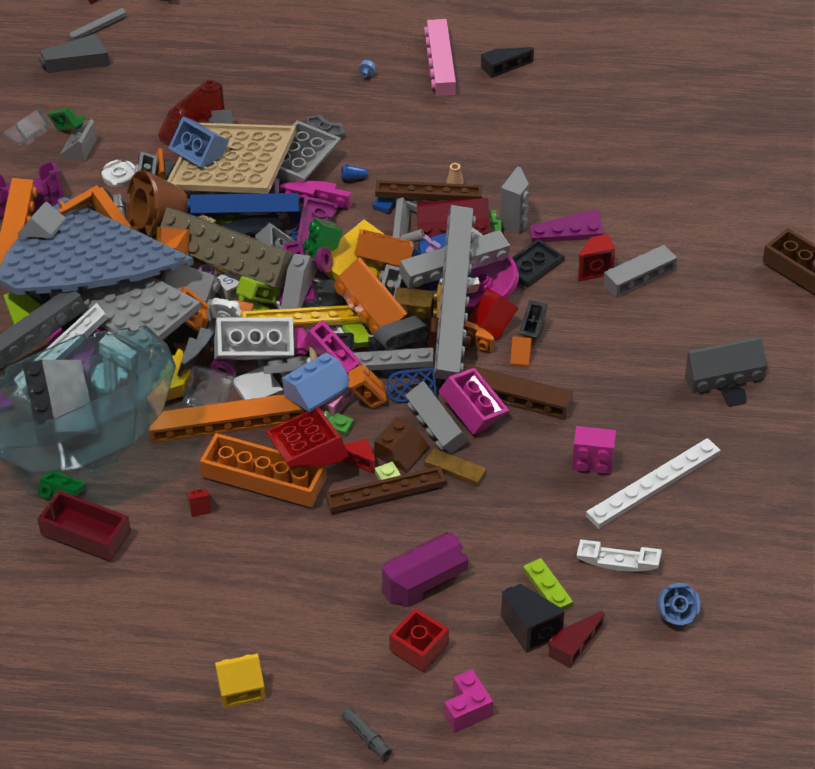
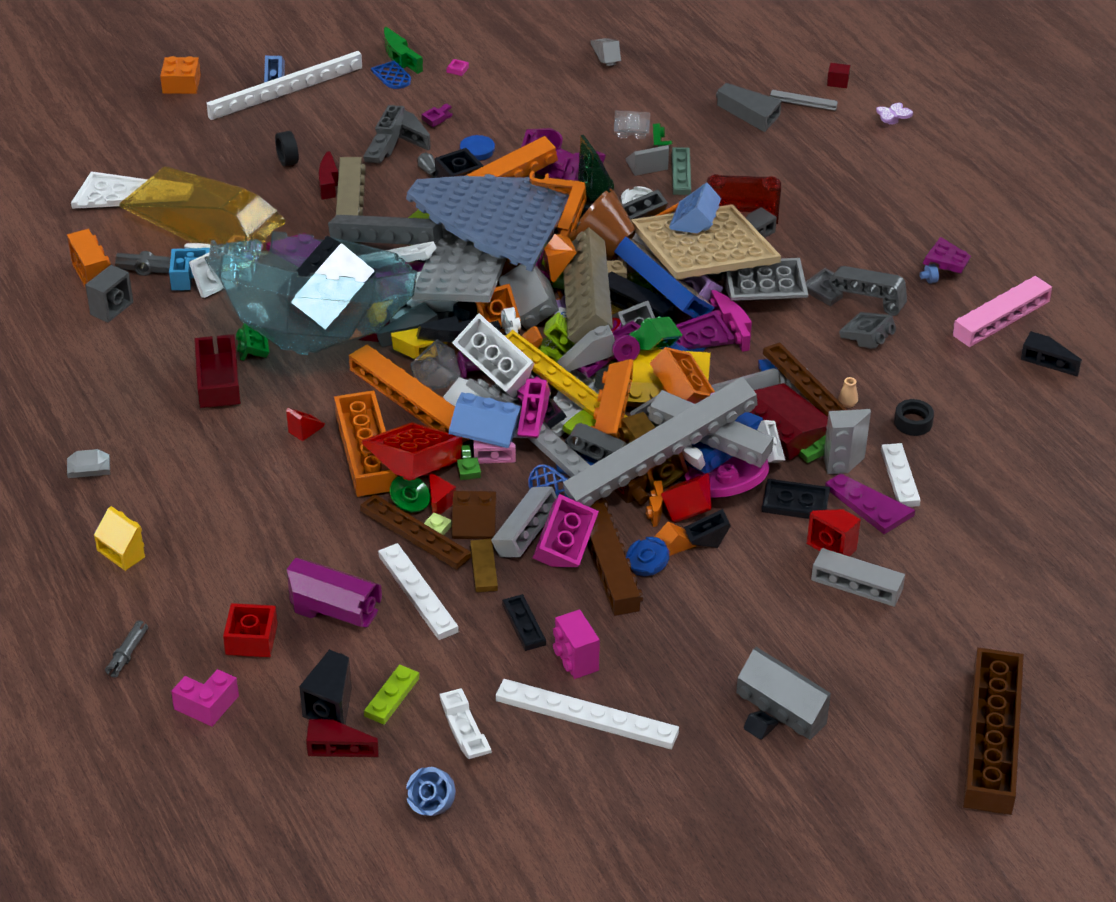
camera: 55 degrees right, 5 degrees down
(43, 223) = (512, 176): light grey slope -> none
(84, 171) = (592, 171): none -> clear green slope
(114, 134) = (681, 171): none -> sand green tile
(114, 668) = (88, 463): none -> light grey slope
(345, 472) = (416, 491): none -> green dish
(351, 173) = (784, 328): blue cone -> none
(357, 101) = (872, 283): none -> dark grey beam
(359, 50) = (947, 256): none -> magenta wing
(367, 386) = (516, 456): orange brick -> none
(396, 130) = (869, 329): none -> dark grey plate
(449, 519) = (418, 591): none -> white plate
(502, 150) = (912, 427): none -> black tyre
(528, 366) = (648, 556): none -> blue tile
(534, 473) = (524, 622): none -> black tile
(558, 198) = (900, 474): none -> white plate

